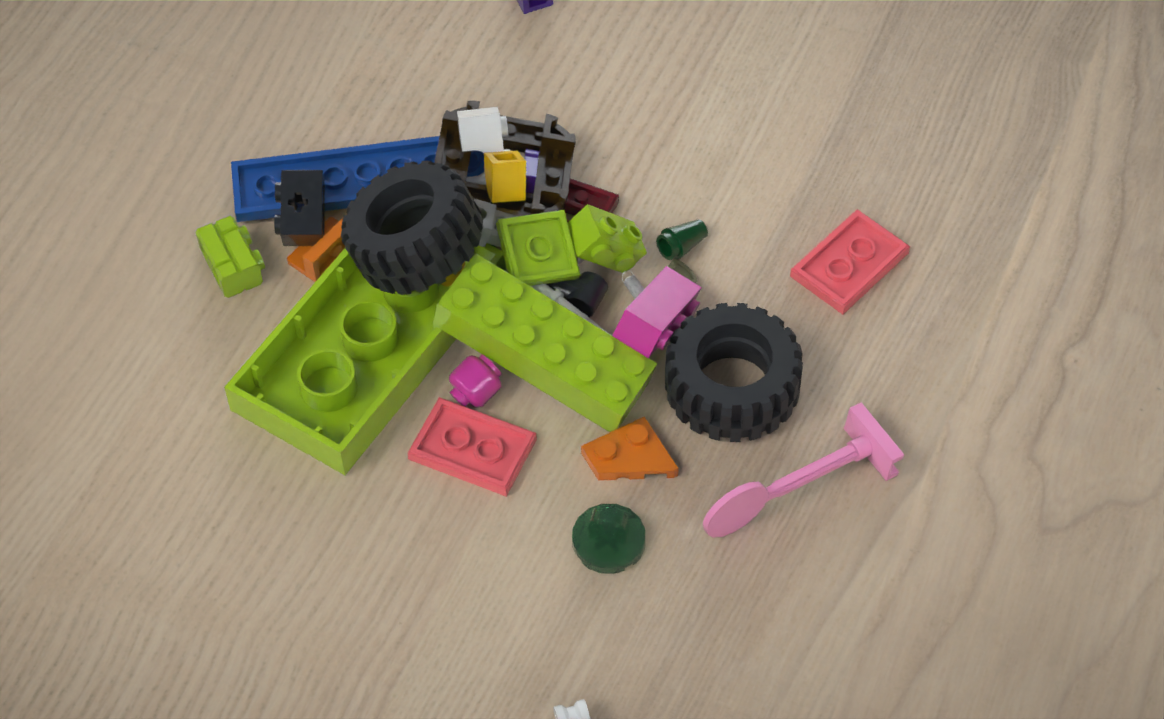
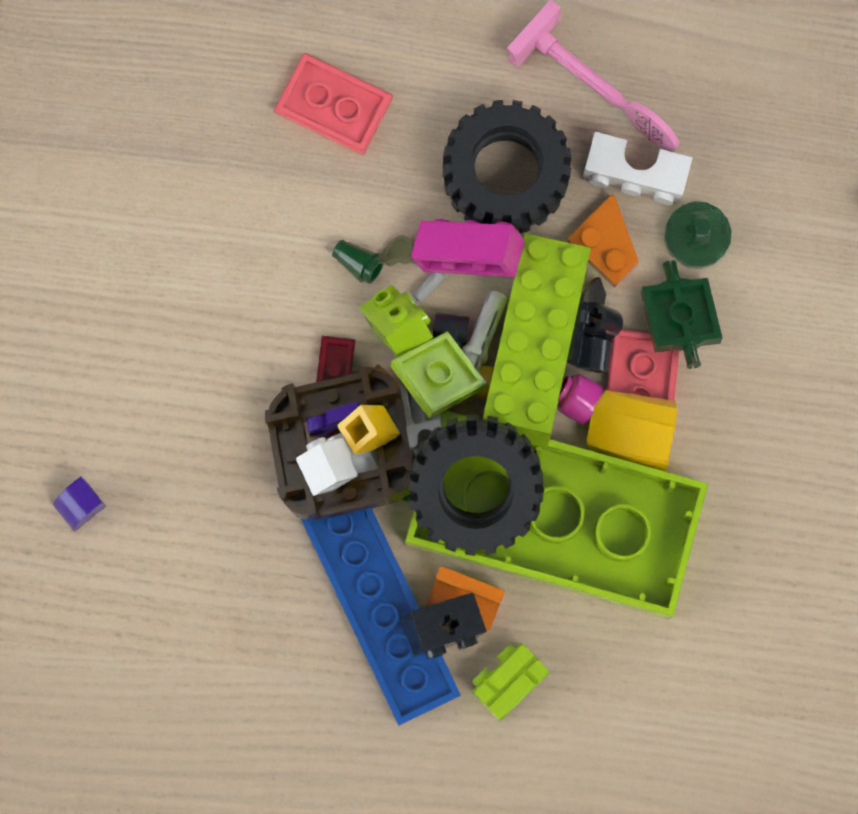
camera: 110 degrees left, 25 degrees up
(423, 415) = (633, 428): none -> yellow slope
(526, 490) = (681, 314): none -> dark green plate
(540, 403) = (592, 328): none -> black panel
(709, 471) = (608, 166): none -> white arch

